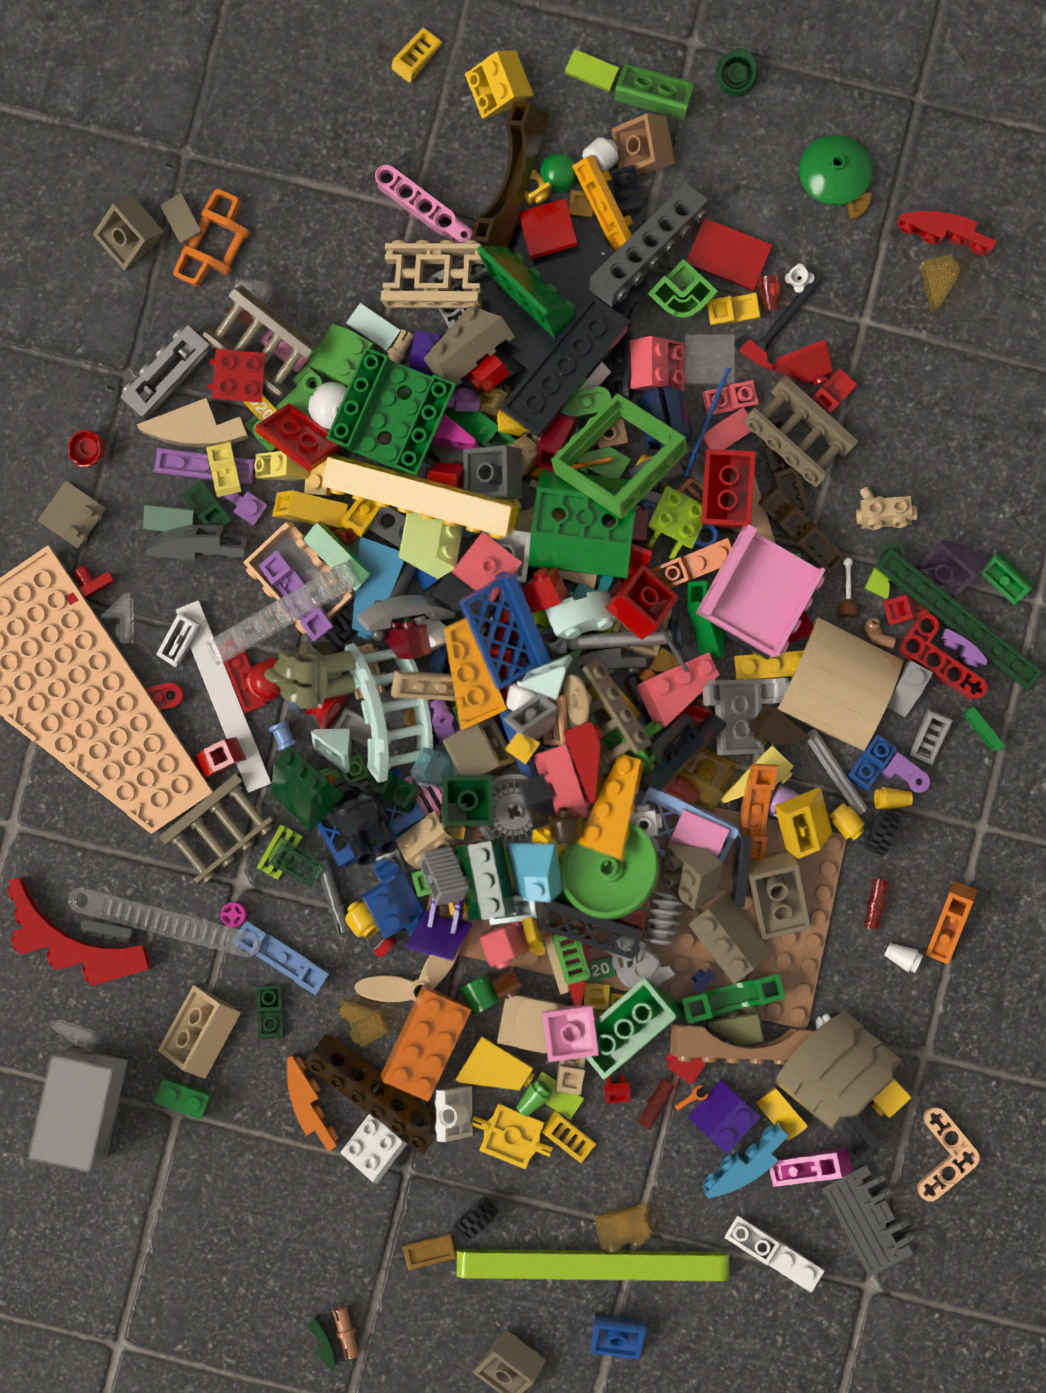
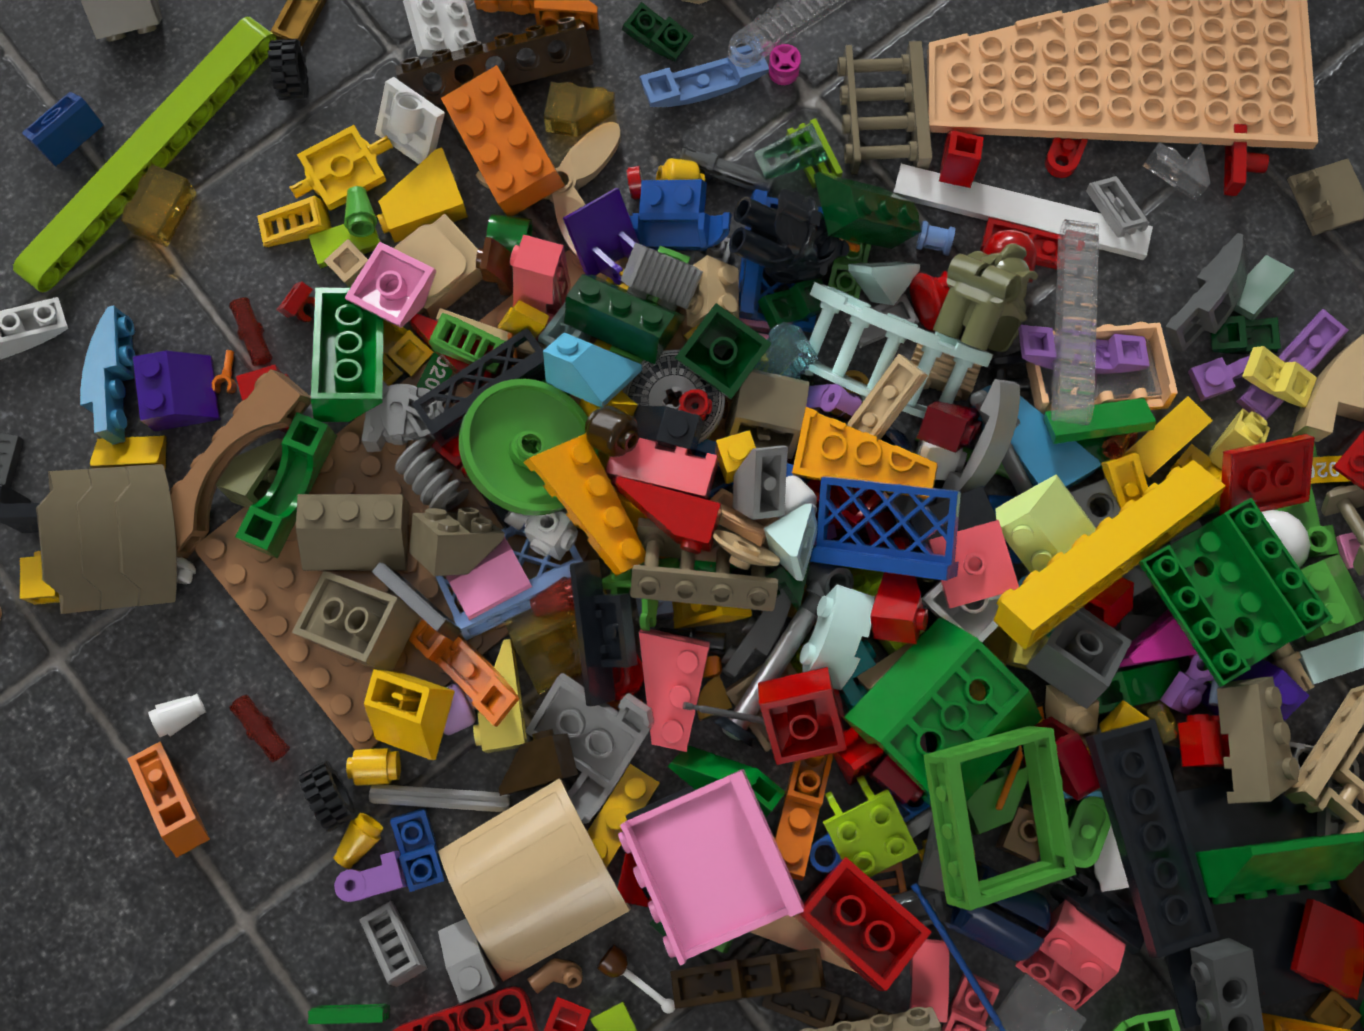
camera: 125 degrees right, 10 degrees down
(503, 794) = (696, 396): none -> red plate
(702, 979) = (334, 470): clear blue plate -> none
(811, 1167) = (45, 442): dark pink slope -> none

